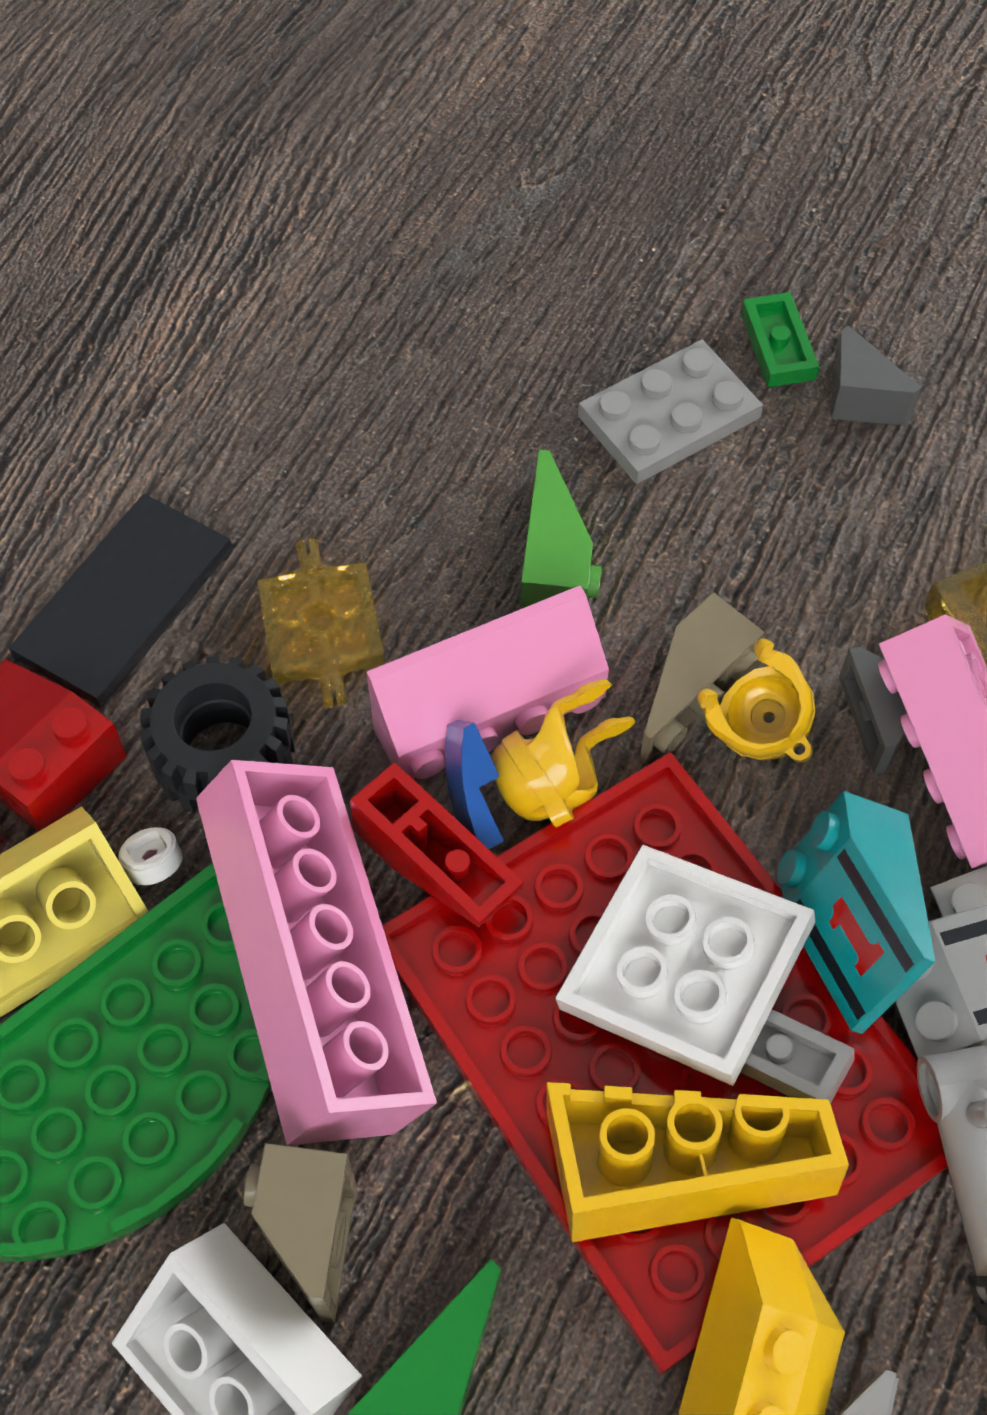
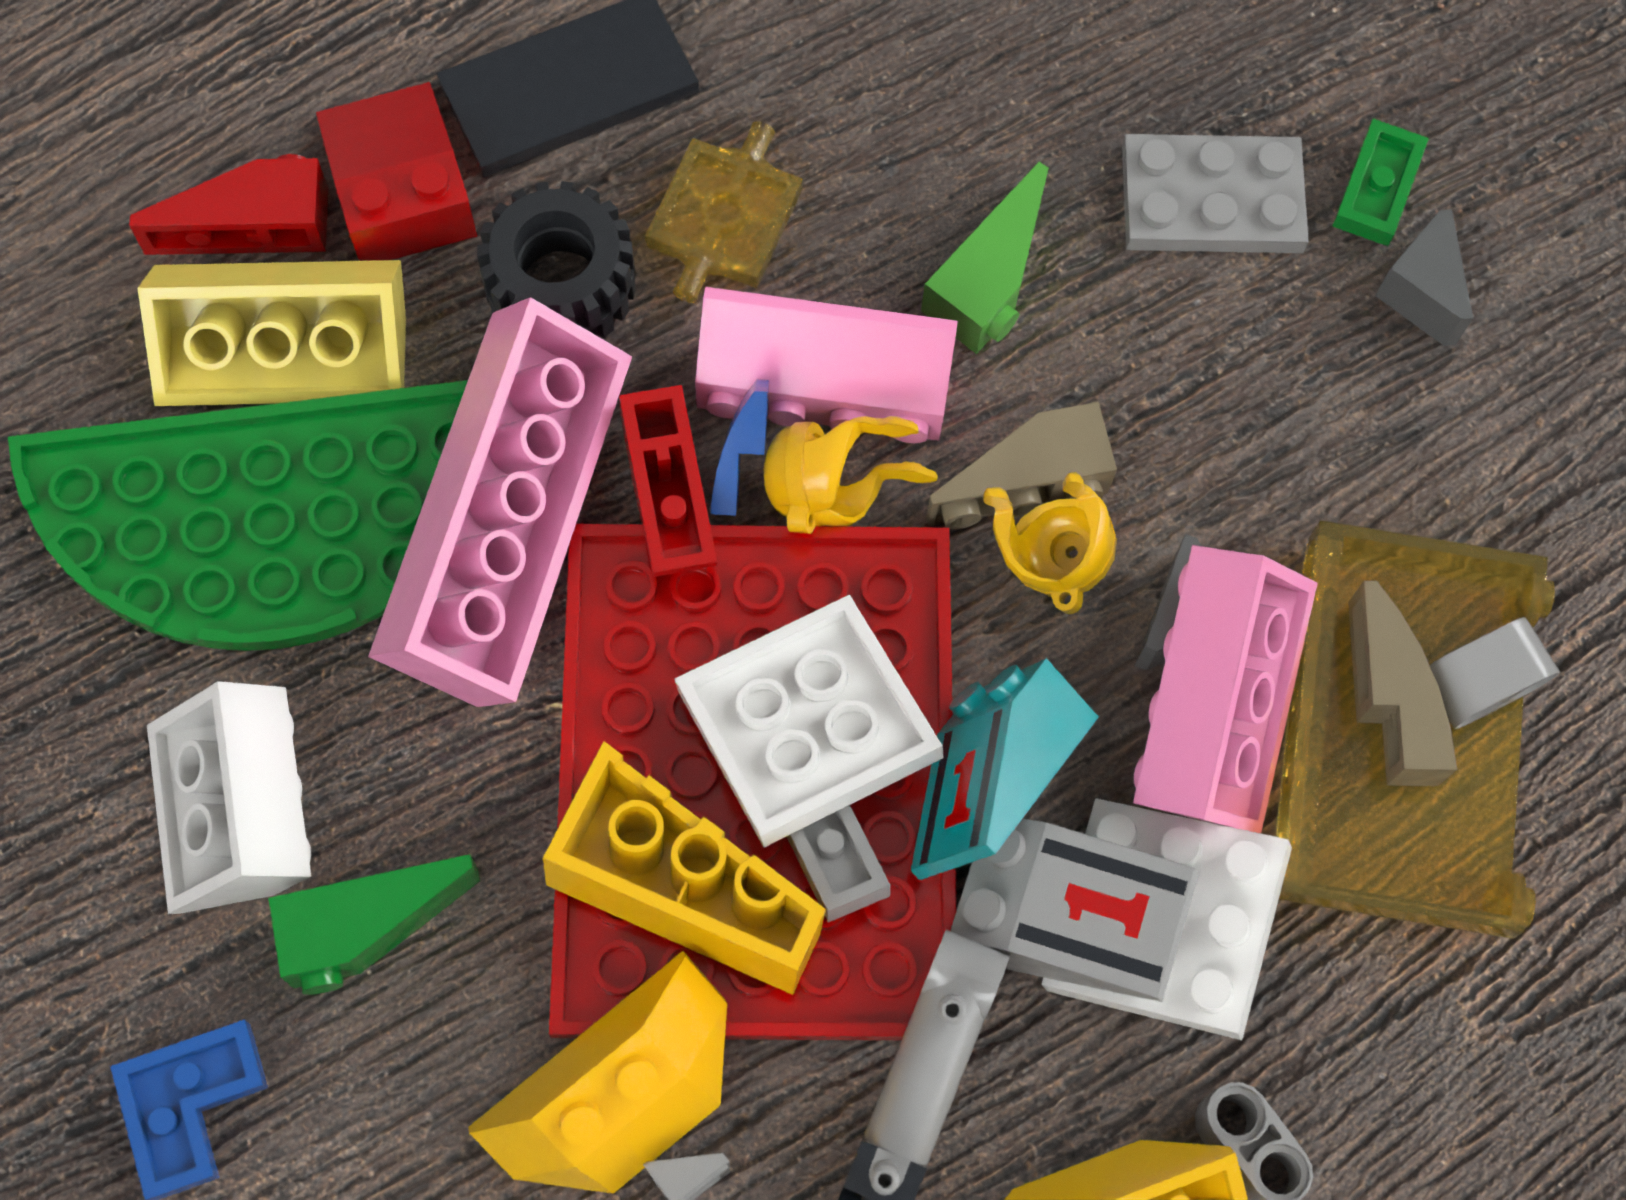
camera: 30 degrees right, 10 degrees up
(150, 856) = (433, 340): white tile -> none
(305, 1214) = (344, 729): dark tan slope -> none

